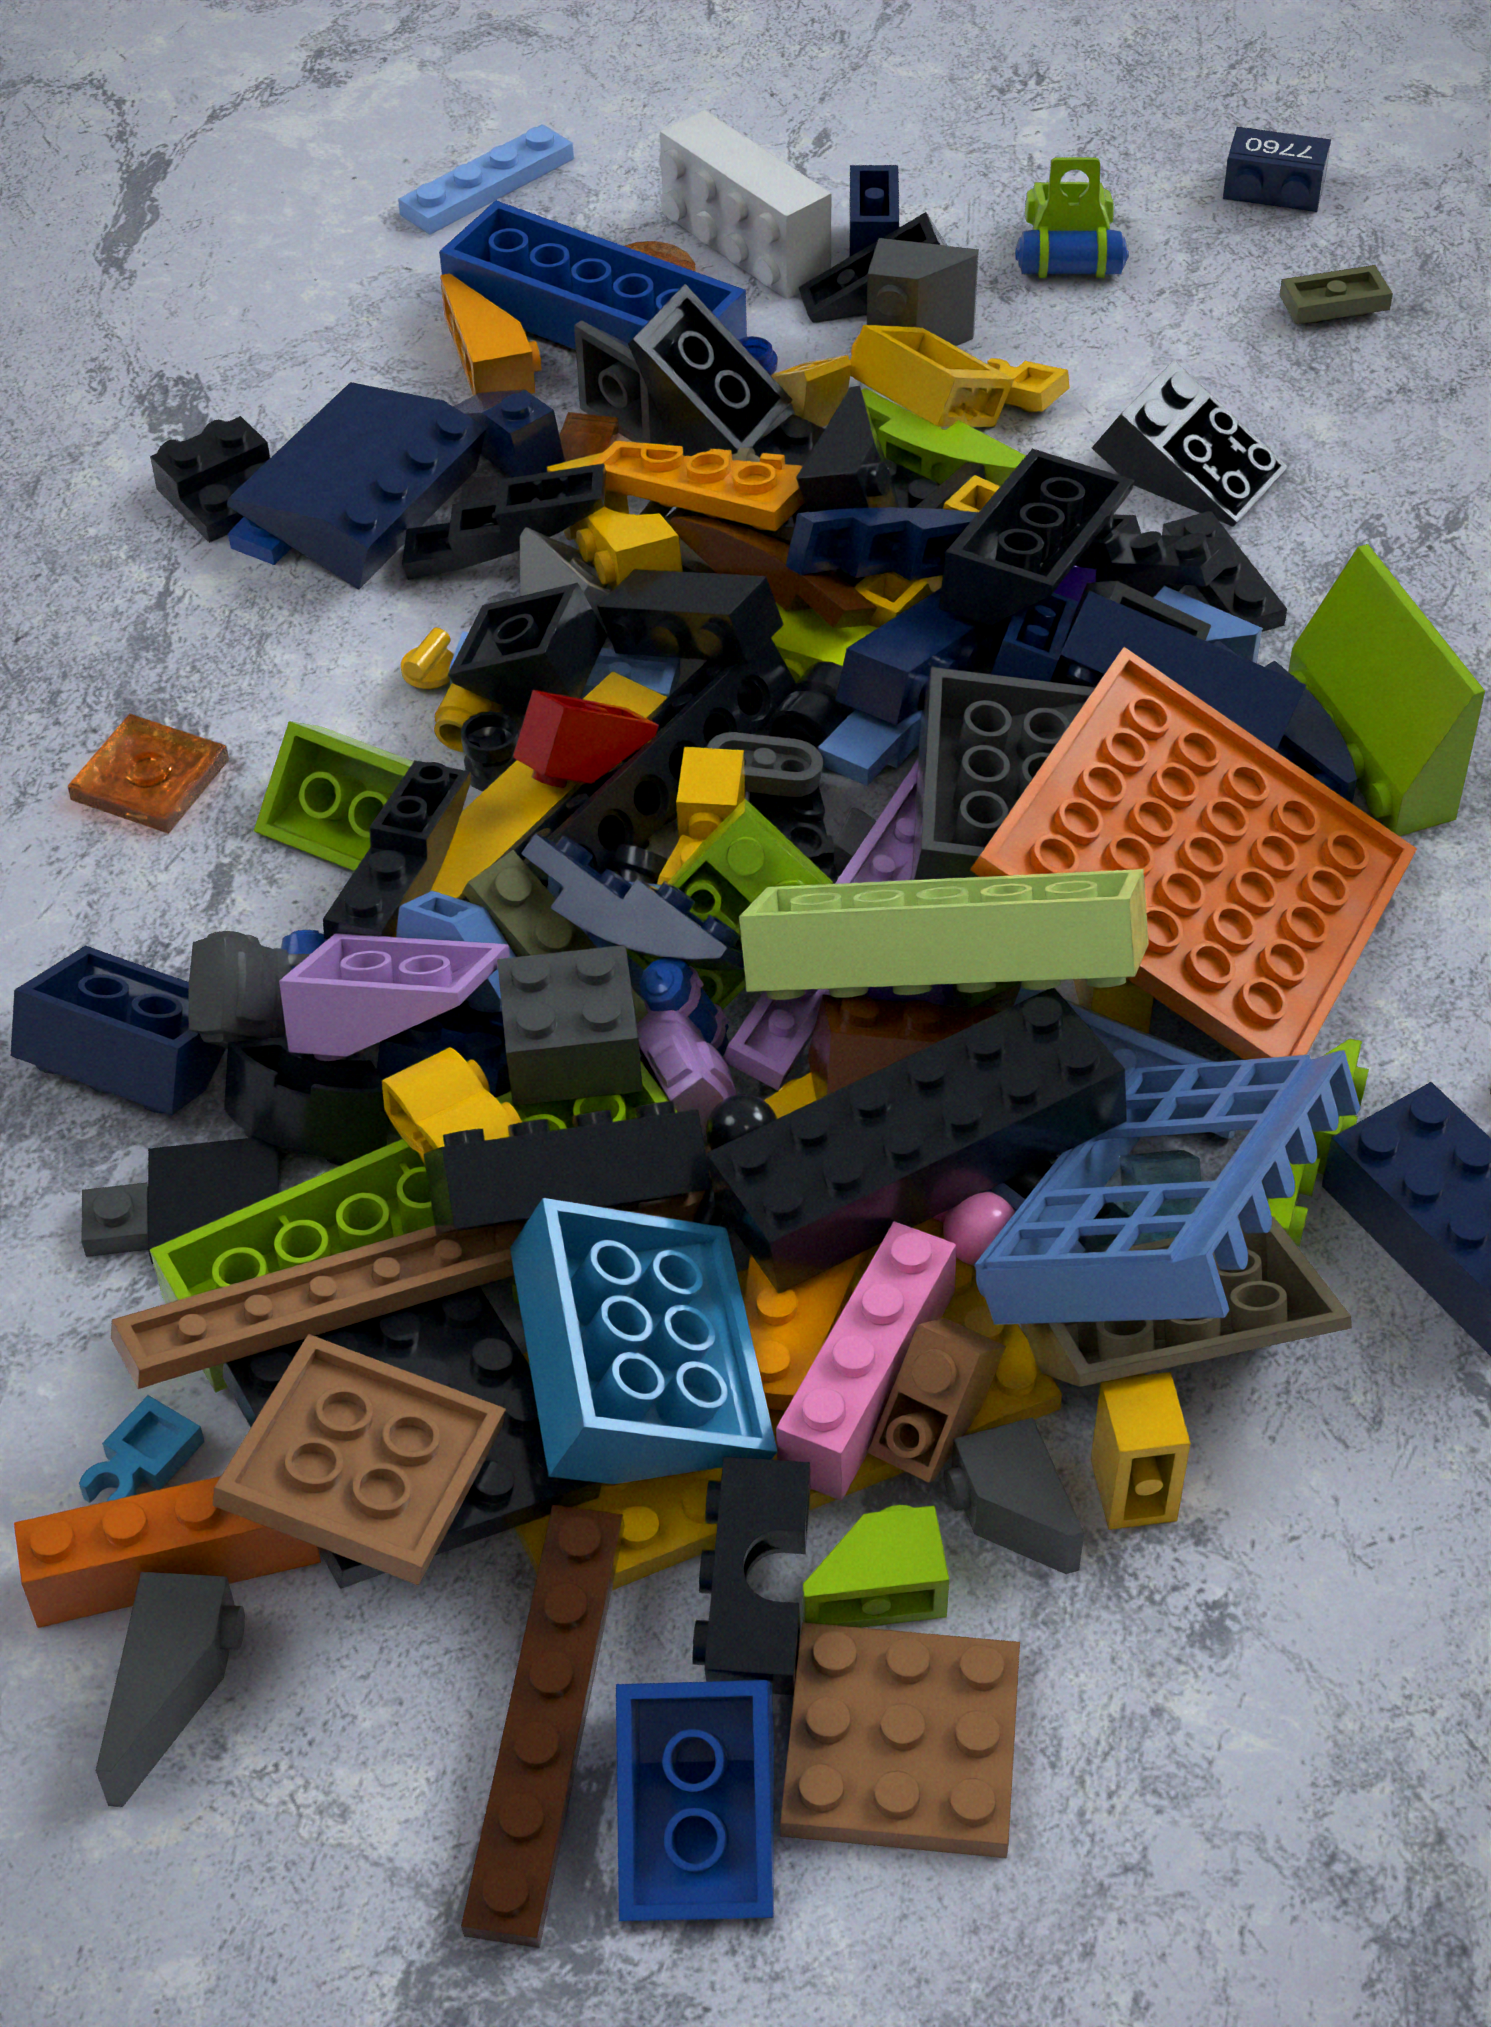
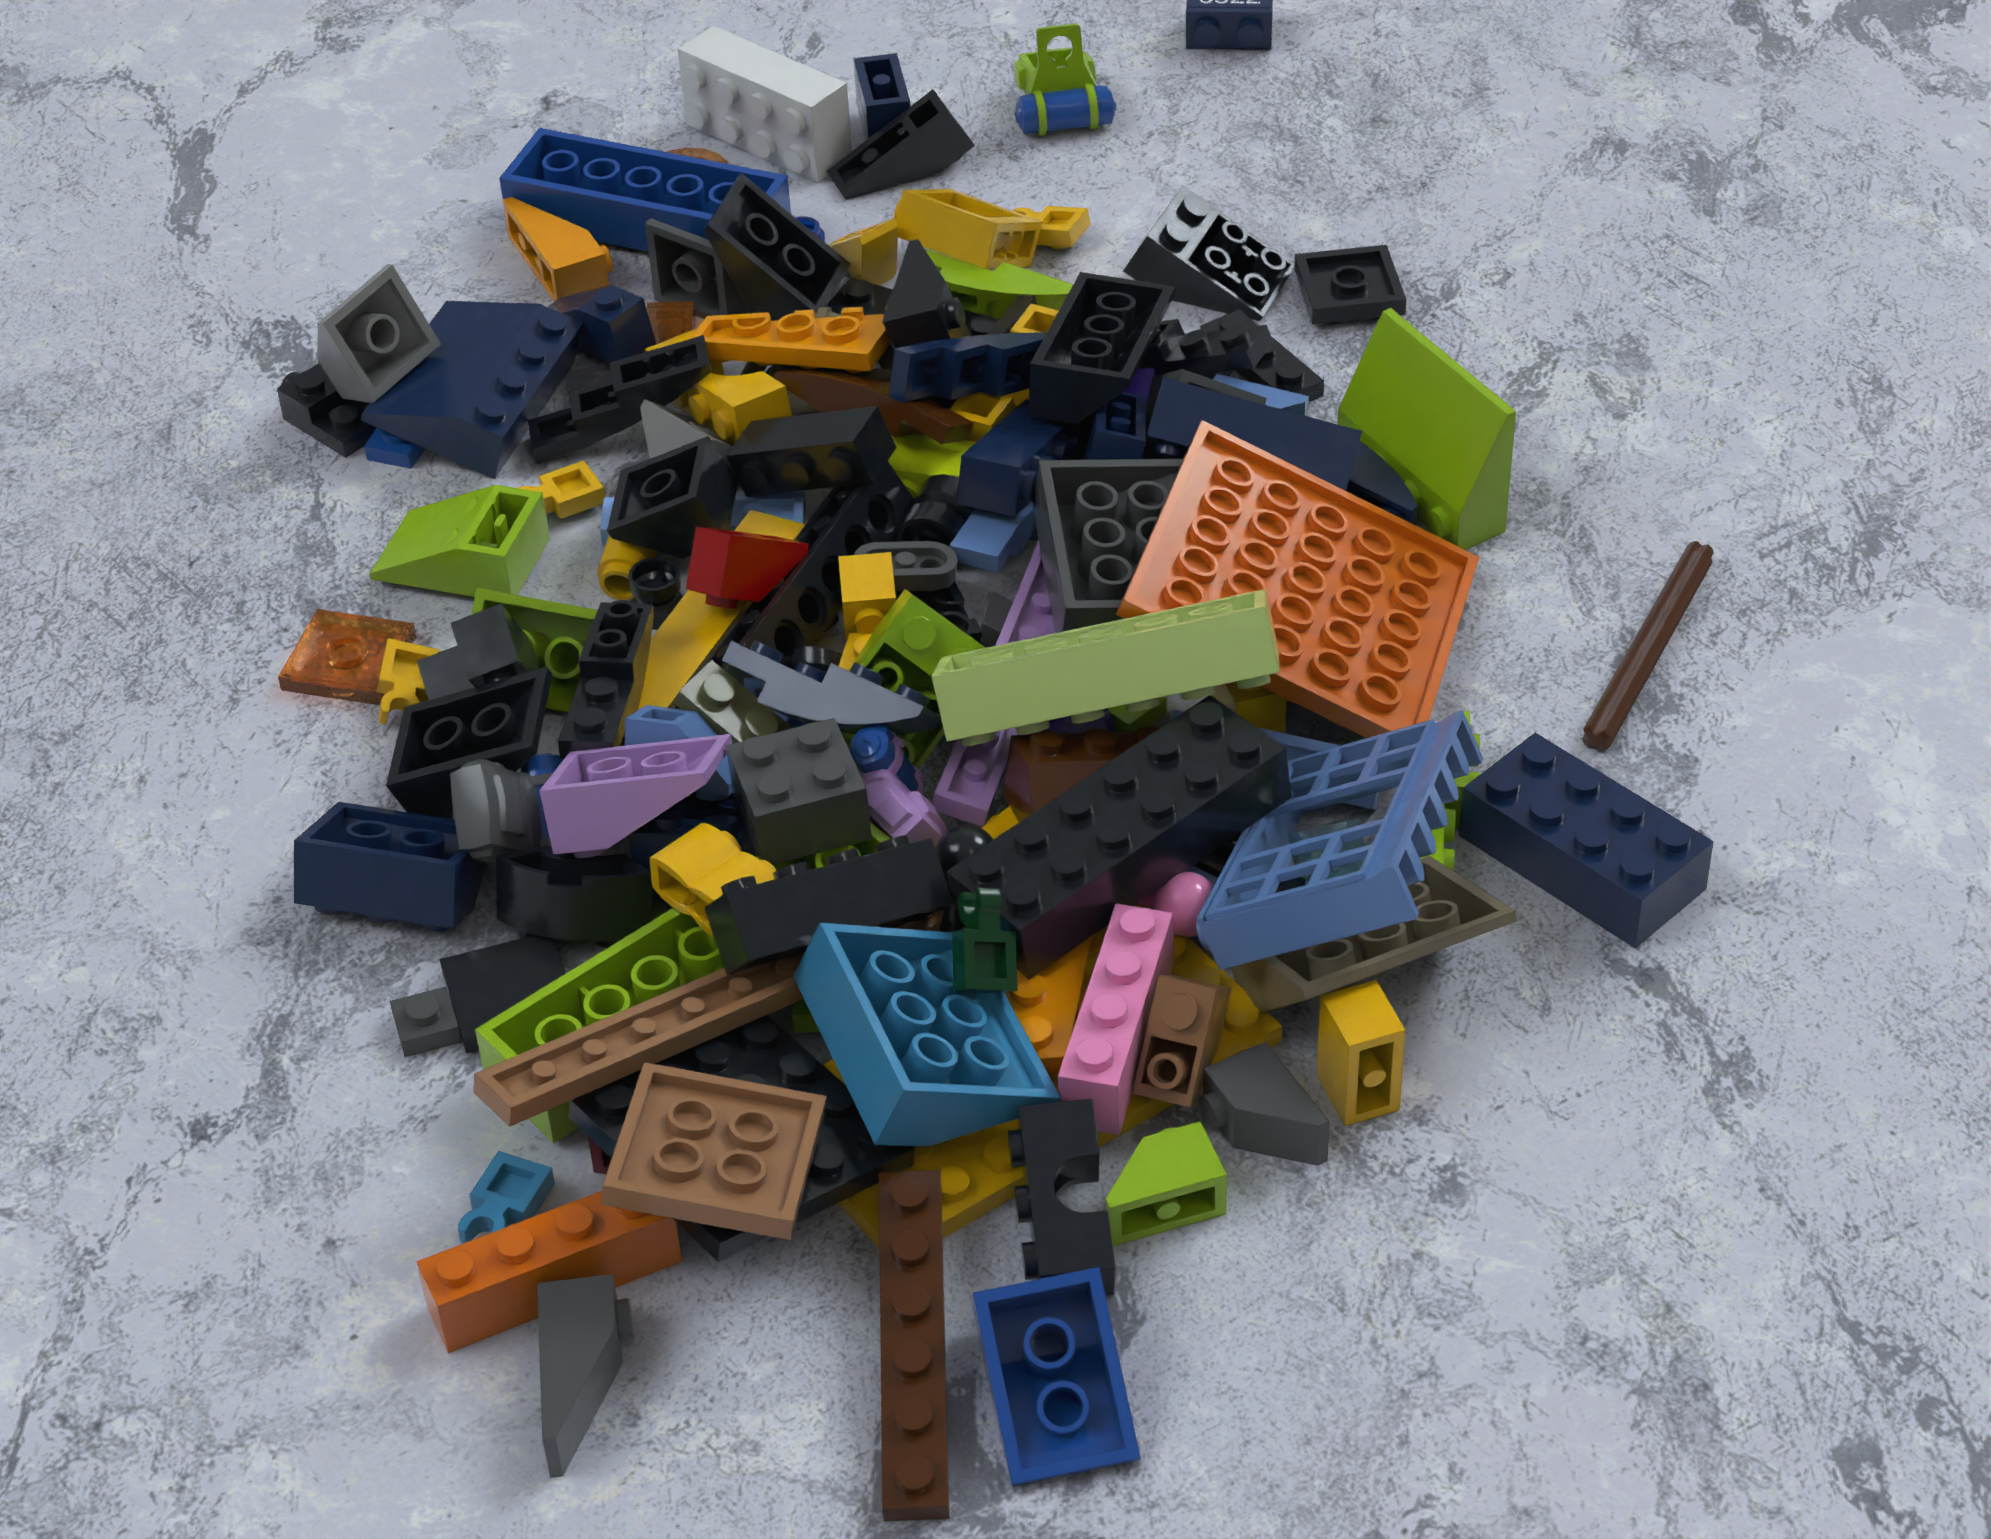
camera: 10 degrees left, 5 degrees down
(199, 809) = (401, 677): none -> yellow plate
(235, 887) = (443, 733): none -> black slope
(254, 415) = (374, 338): none -> light grey slope
(276, 819) = (486, 651): none -> black brick
(306, 664) = (468, 543): none -> lime slope
(416, 618) = (570, 490): none -> yellow plate
(428, 663) = (580, 529): yellow plate -> none
(485, 179) = (515, 113): light blue plate -> none
(726, 1265) = (982, 953): none -> dark green plate
(902, 1740) = (1214, 1310): medium nougat plate -> none
(924, 288) = (945, 153): dark grey slope -> none
(1335, 294) = (1305, 116): olive plate -> none
(1341, 499) = (1349, 284): none -> black plate

